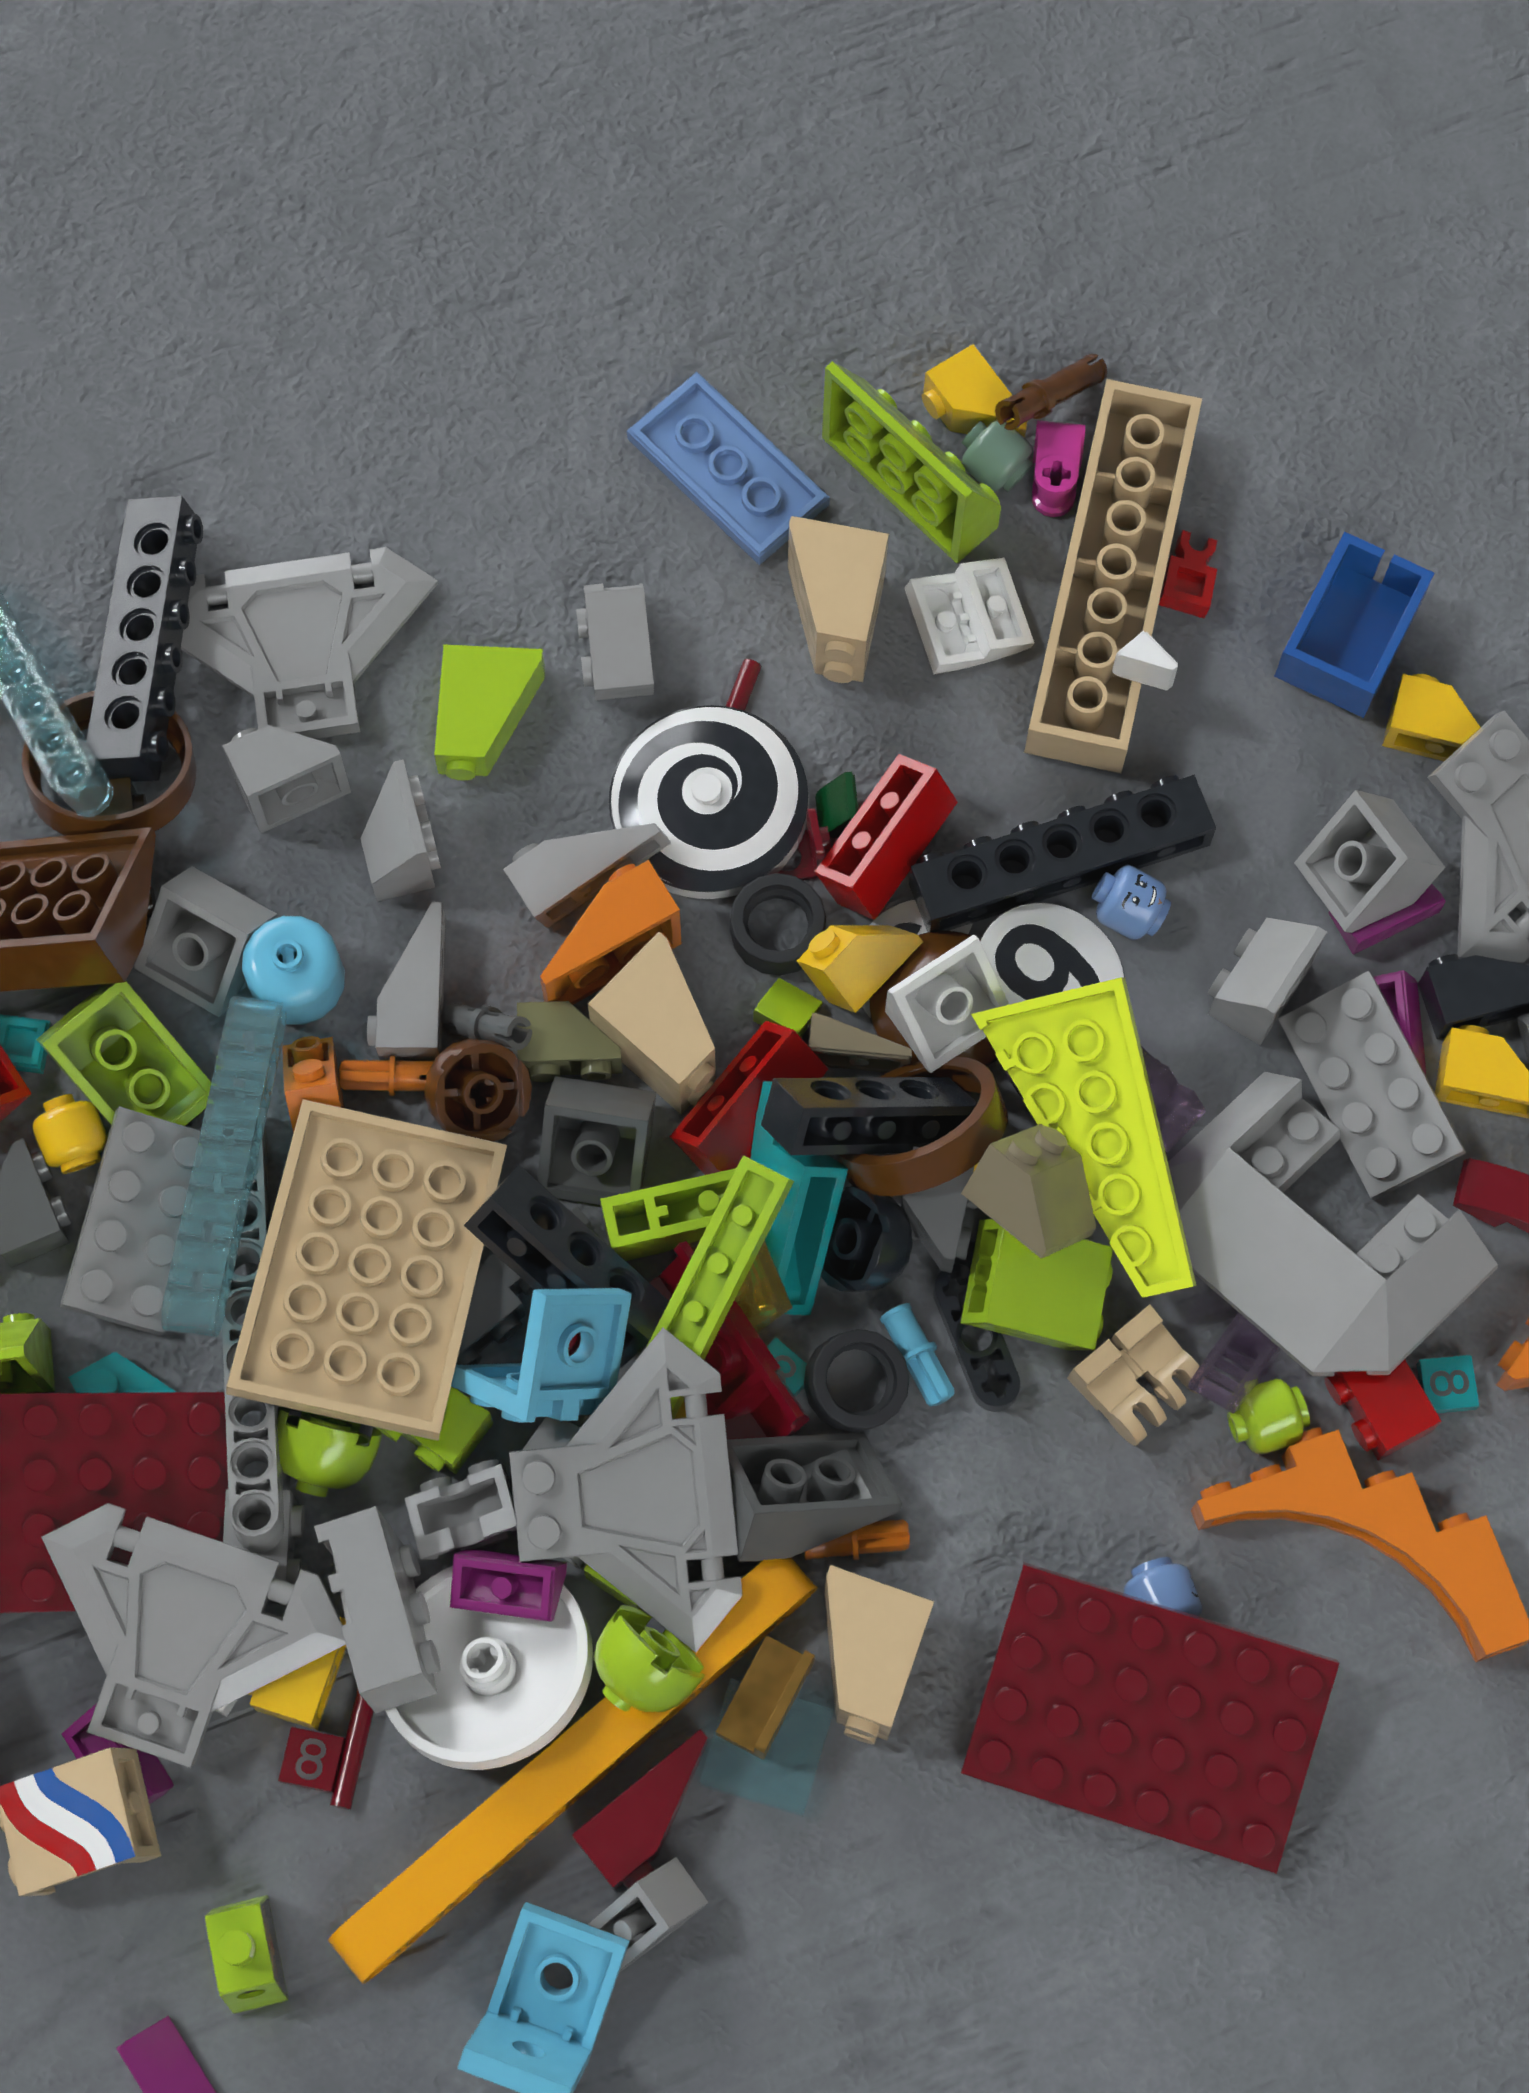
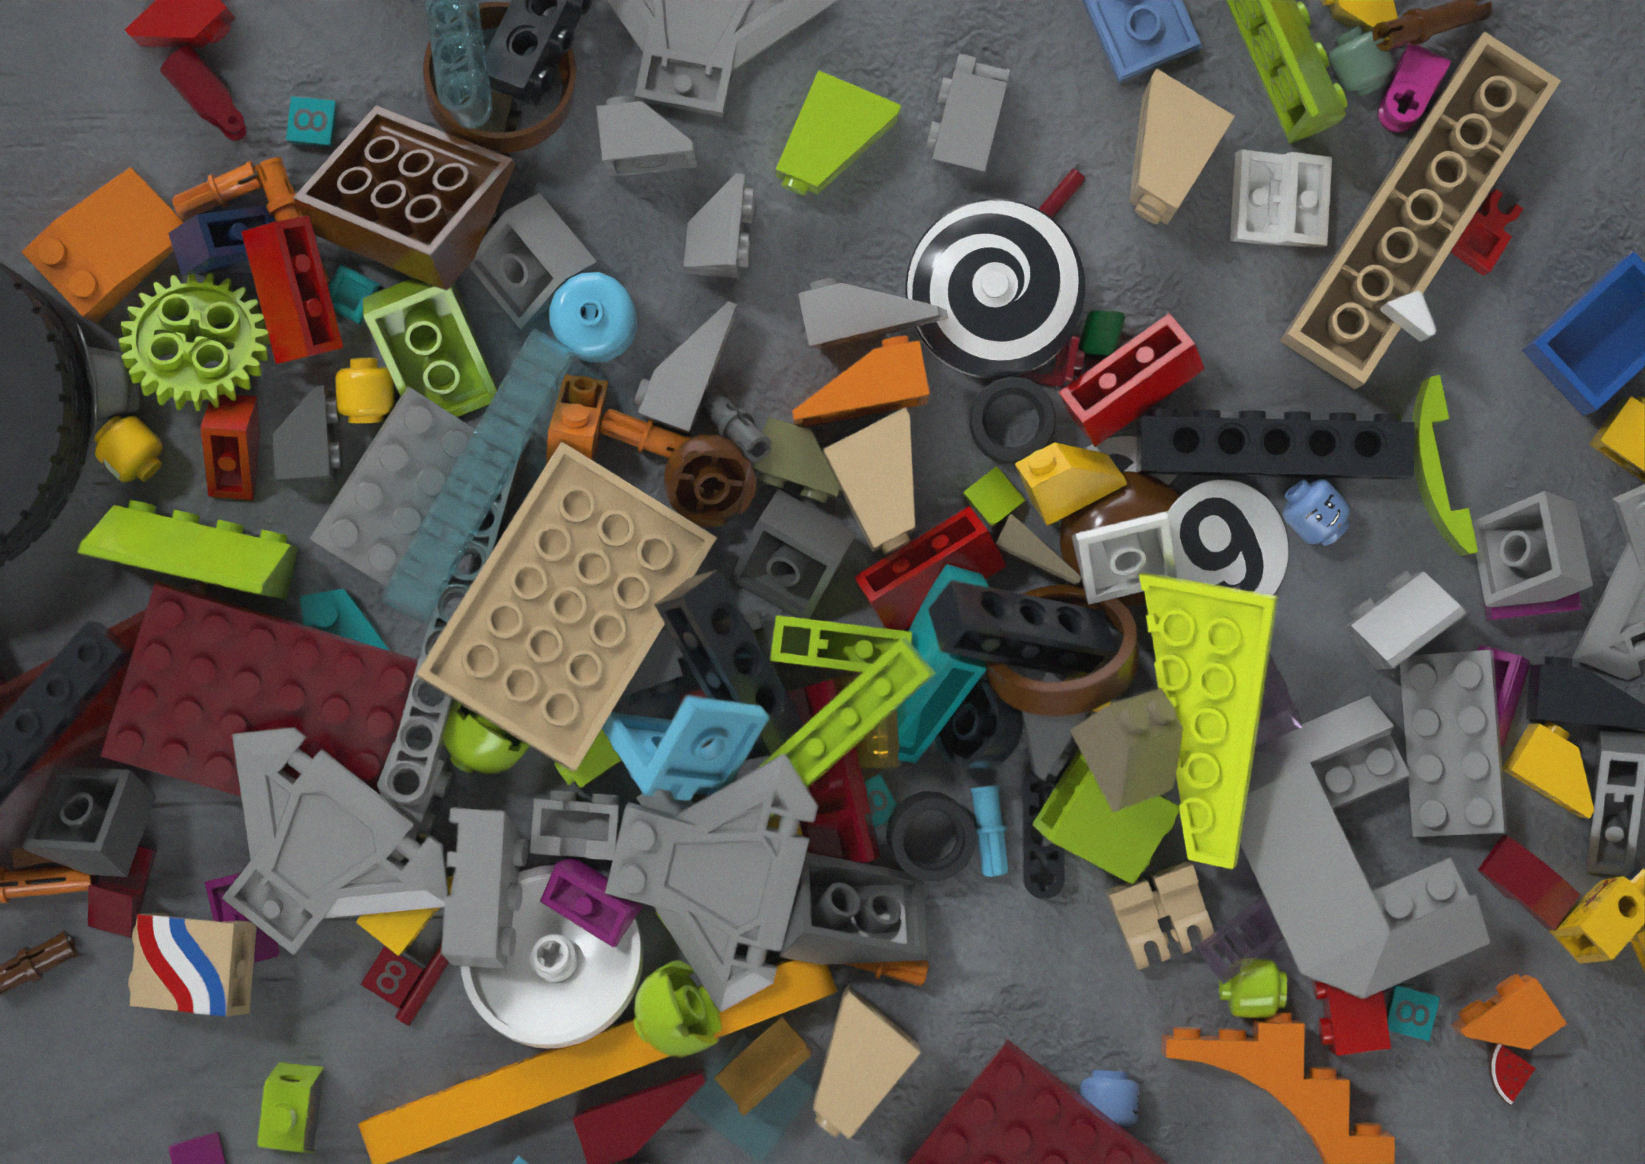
camera: 25 degrees right, 15 degrees up
(1274, 866) = (1455, 525): none -> lime slope

